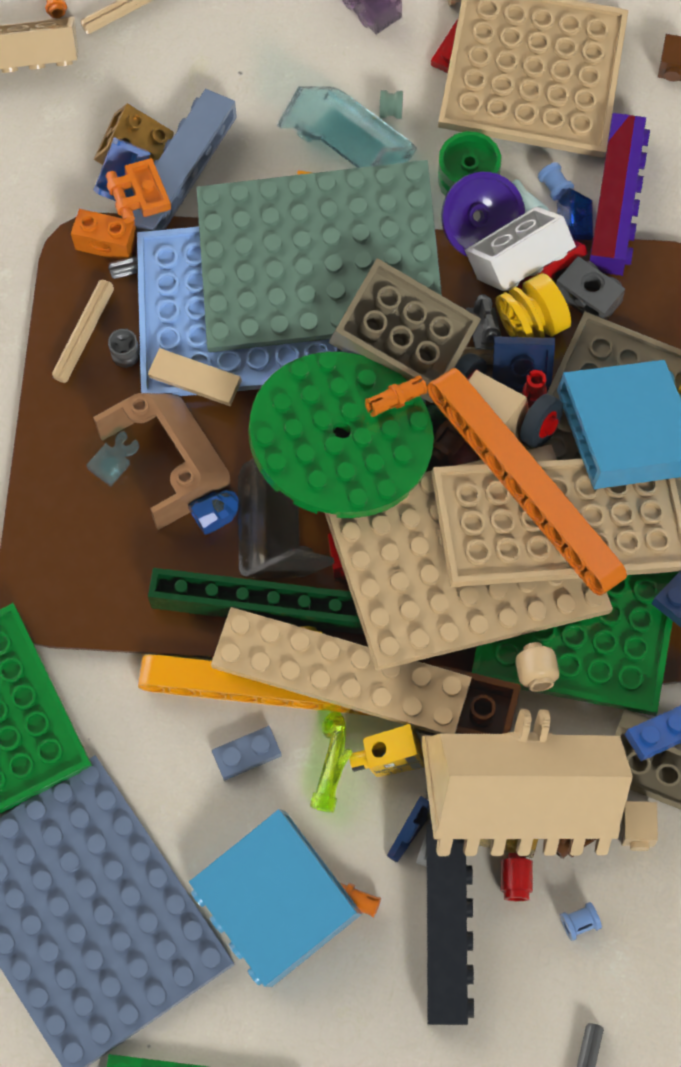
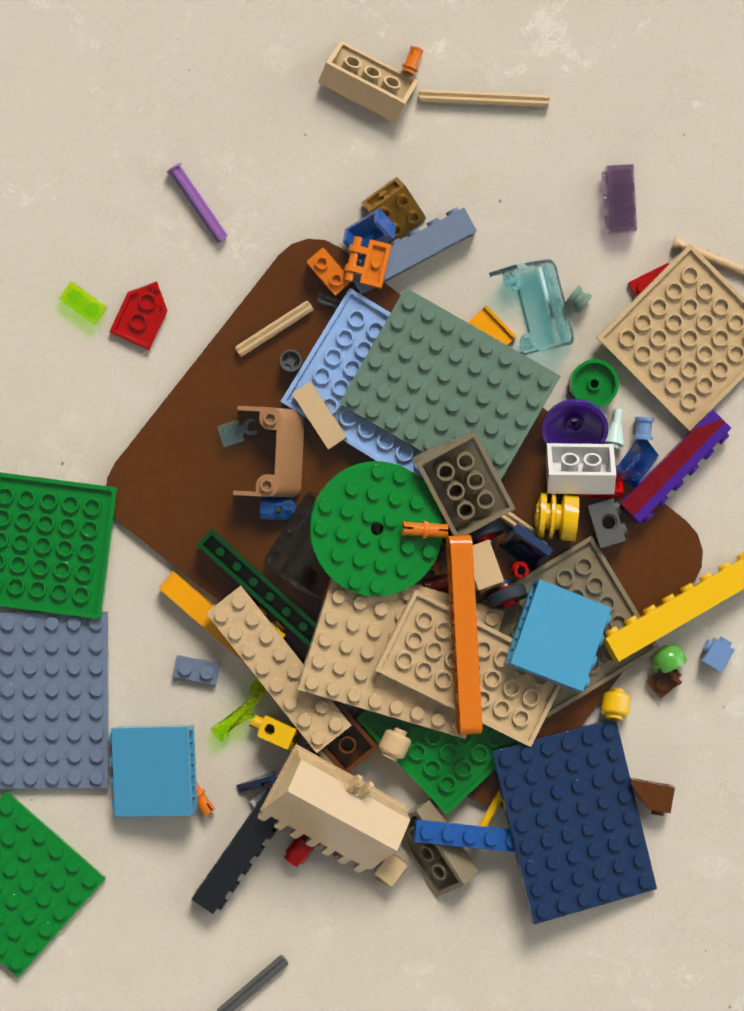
camera: 30 degrees right, 20 degrees up
(488, 326) = (524, 501): dark grey hinge -> none
(580, 921) = (318, 898): medium blue bush -> none

